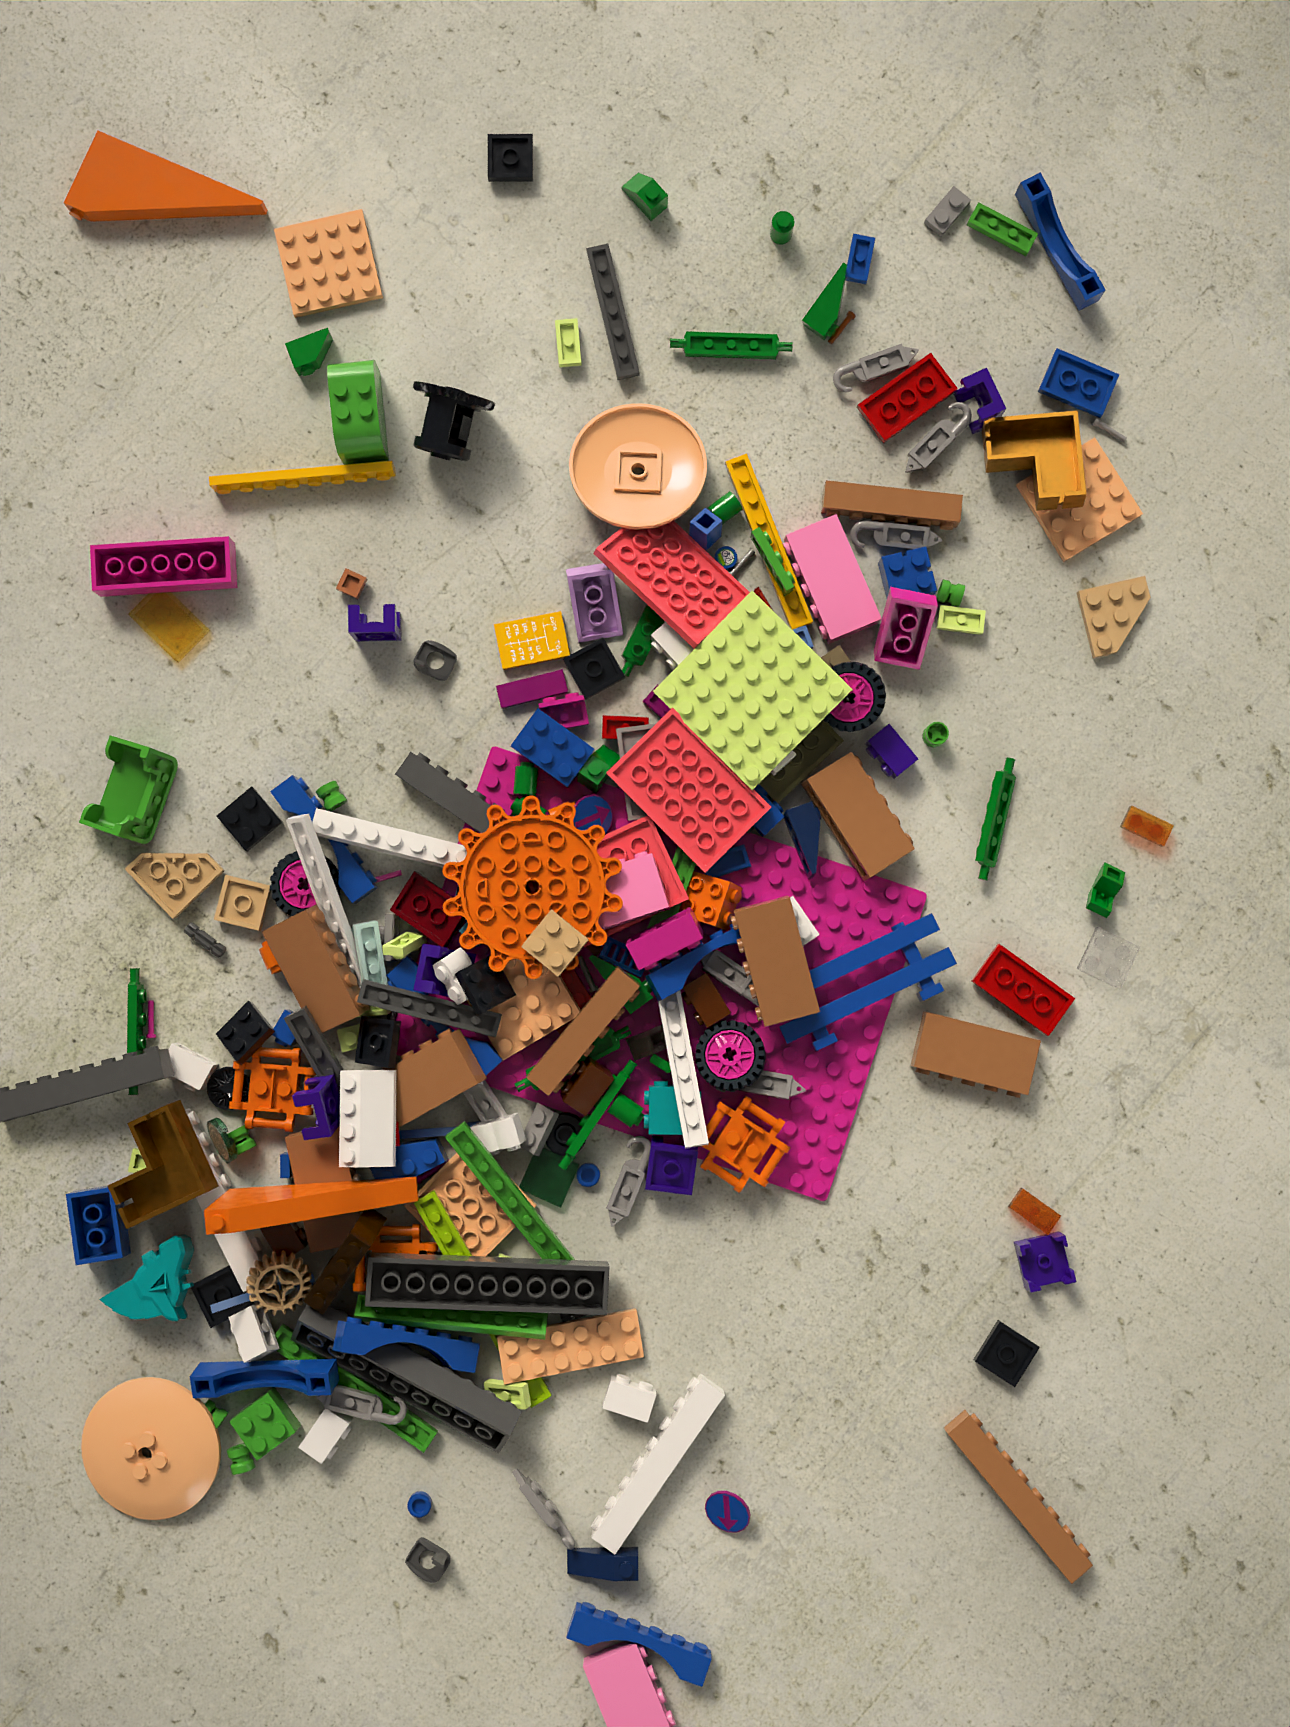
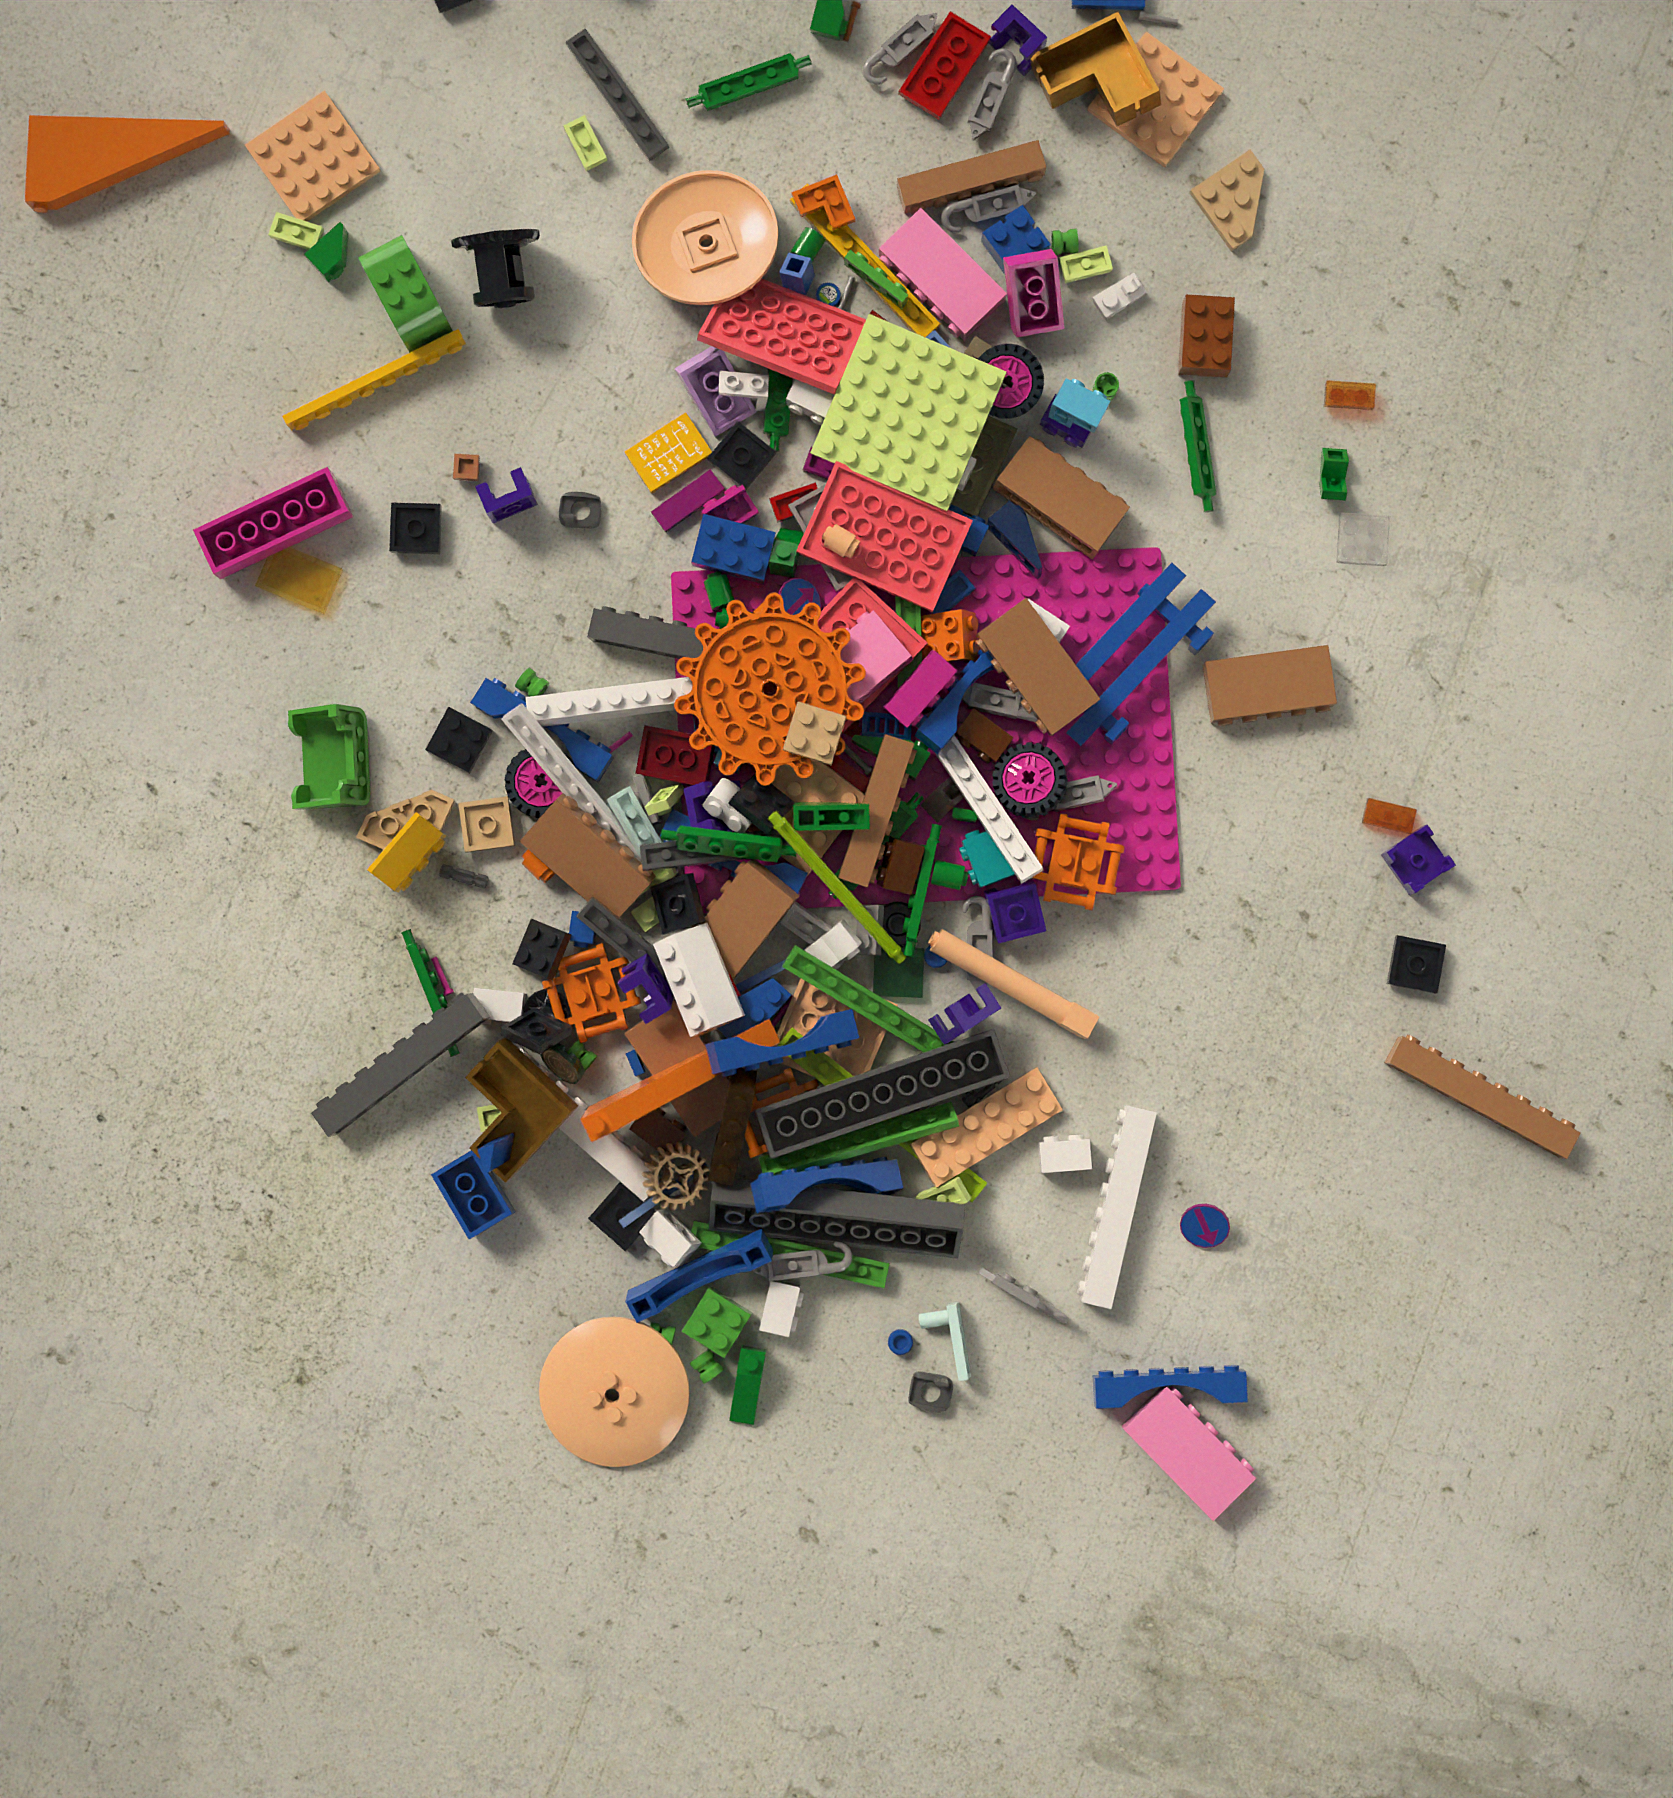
camera: 15 degrees left, 0 degrees up
(128, 1199) = (496, 1152): none -> blue slope
(158, 1285) = (549, 1238): teal animal -> none
(160, 902) = (407, 853): none -> yellow slope
(208, 1105) = (536, 1031): none -> black plate
(271, 1487) = (747, 1384): none -> green slope
(286, 619) = (415, 528): none -> black plate
(287, 320) = (295, 231): none -> yellowish green plate
(440, 1009) = (728, 843): none -> green plate
(465, 1208) = (735, 1052): none -> blue arch
(473, 1502) = (953, 1318): none -> light aqua piece
(521, 1084) = (837, 887): none -> lime piece
(540, 1020) = (831, 816): none -> green slope
(589, 1249) = (965, 1014): none -> dark purple panel
(603, 1564) = (1103, 1324): dark blue slope -> none
(620, 609) = (745, 385): none -> white bracket
(644, 1229) = (1065, 1013): none -> light nougat brick
(647, 780) = (840, 541): none -> light nougat brick
(759, 471) = (825, 195): none -> orange plate
(905, 744) = (1079, 405): none -> medium azure brick
(979, 659) = (1119, 296): none -> white plate
(1023, 989) = (1291, 603): red plate -> none
(1041, 724) = (1206, 335): none -> dark orange brick

